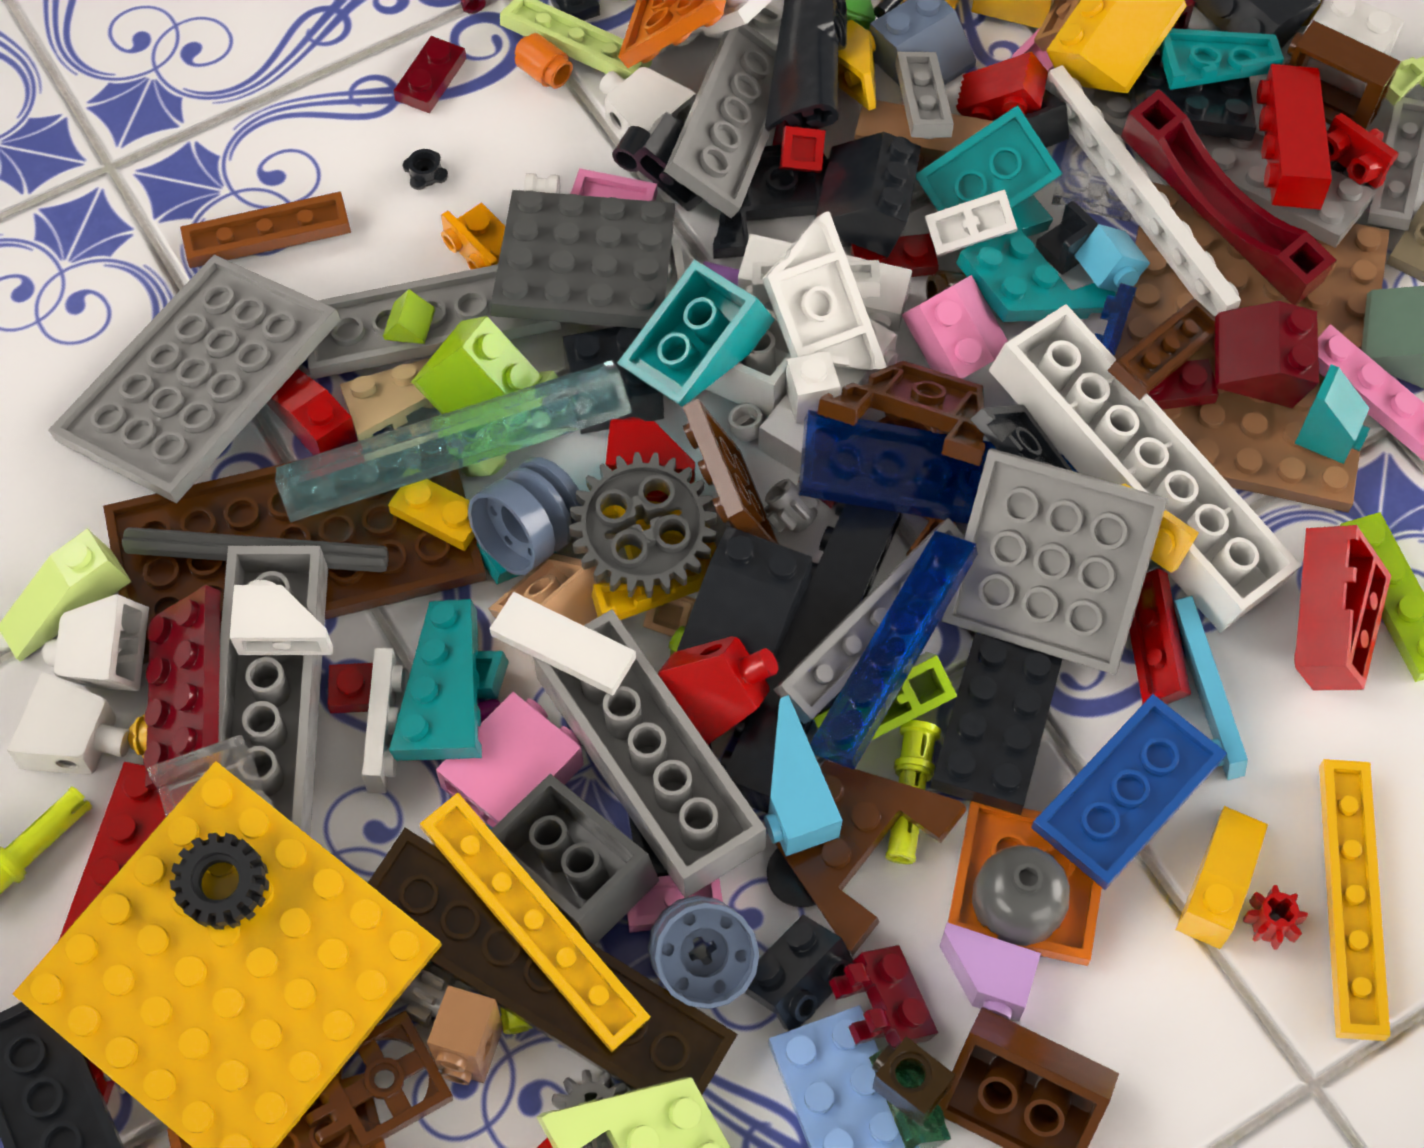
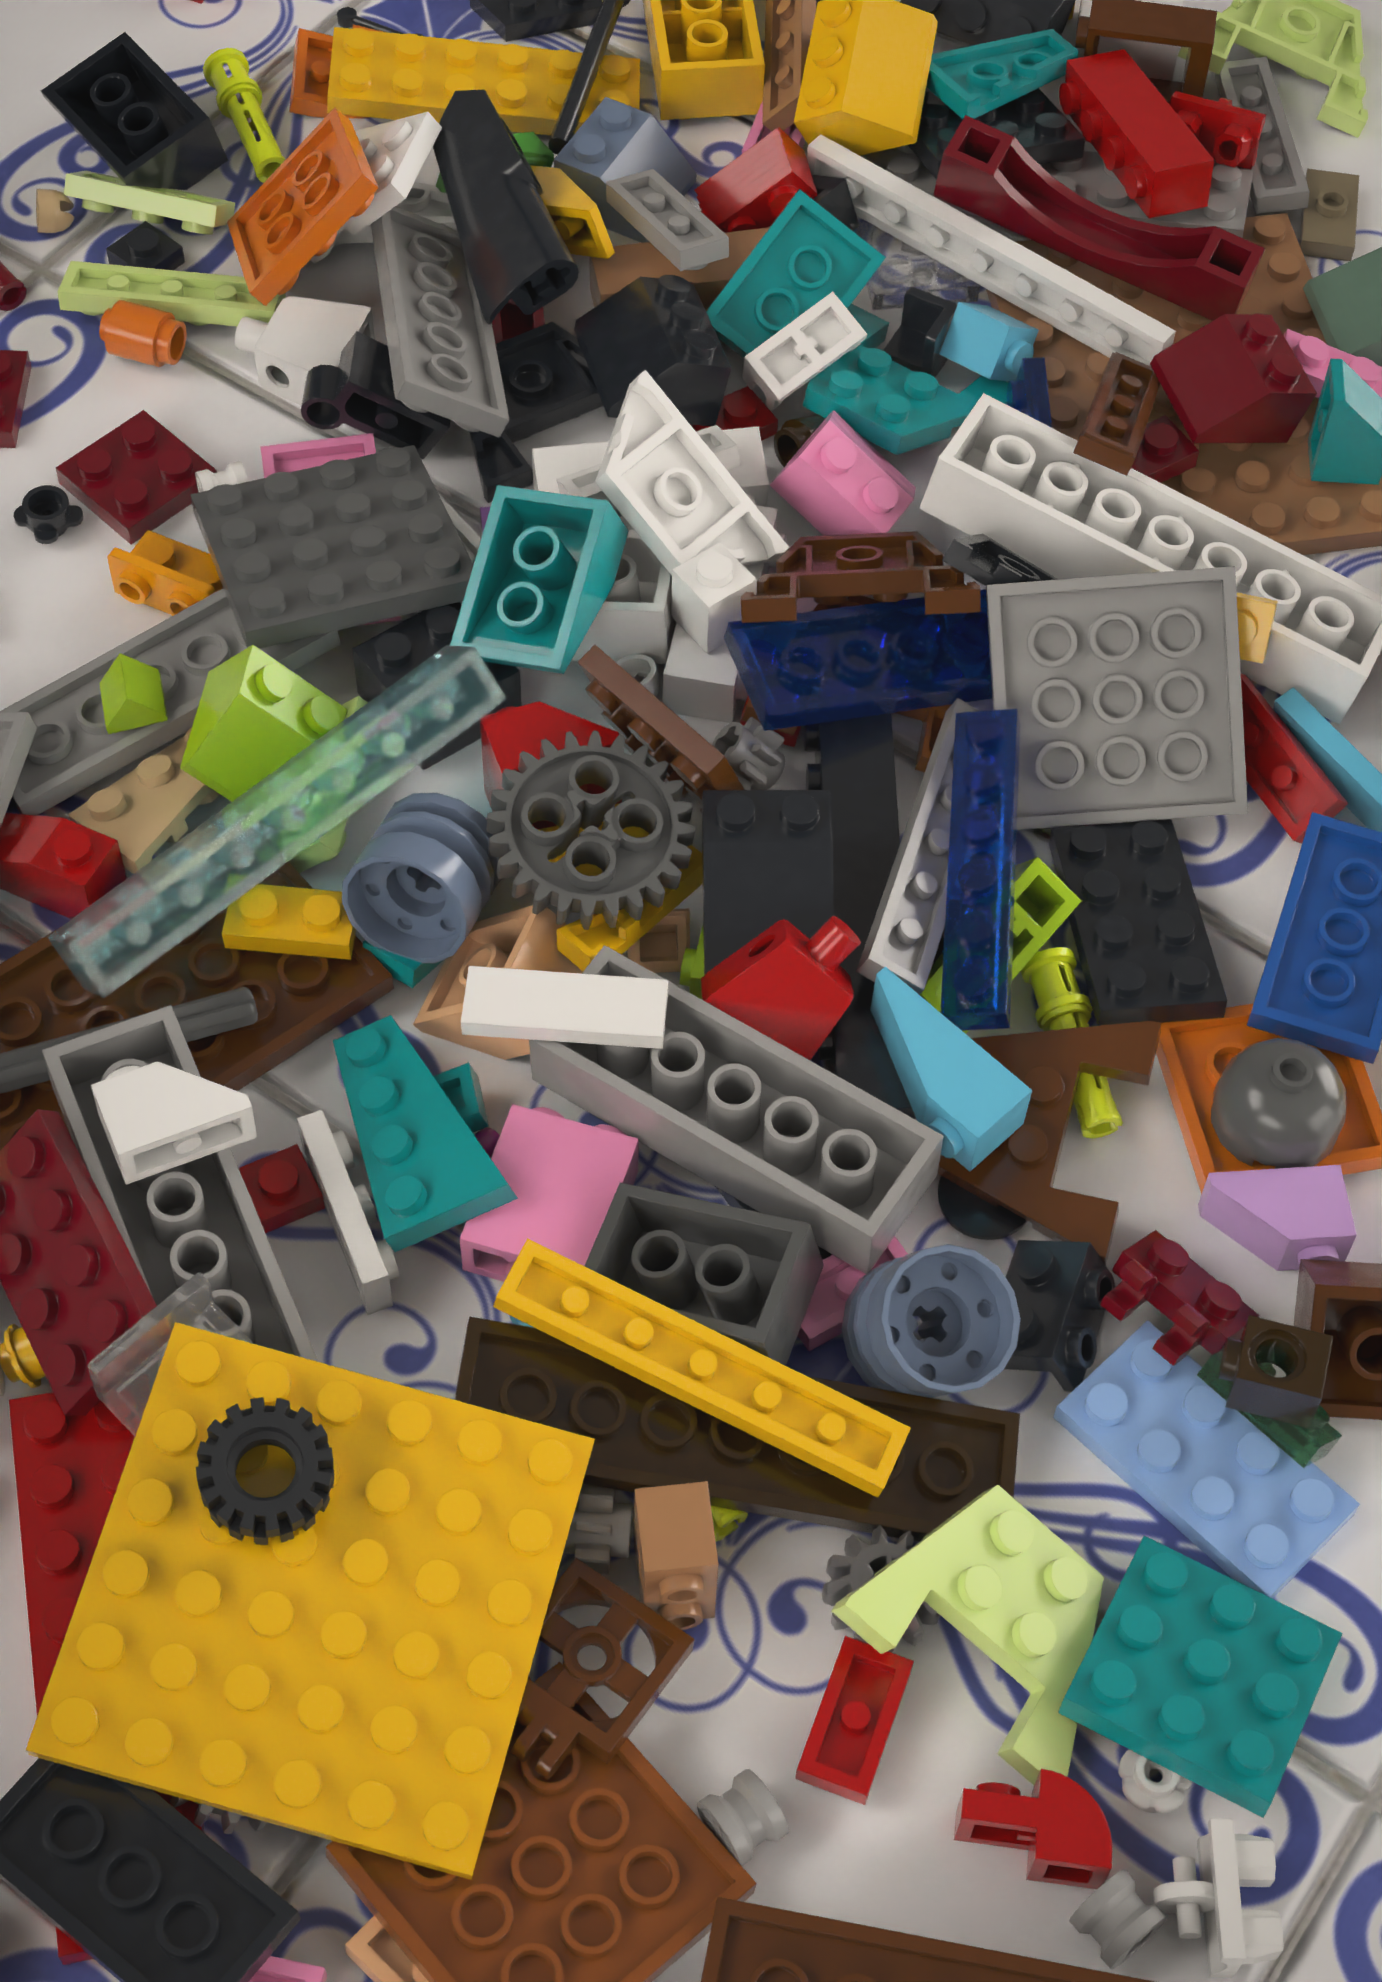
camera: 25 degrees left, 5 degrees down
(493, 160) = (134, 476): none -> dark red plate
(802, 149) = (545, 331): red plate -> none

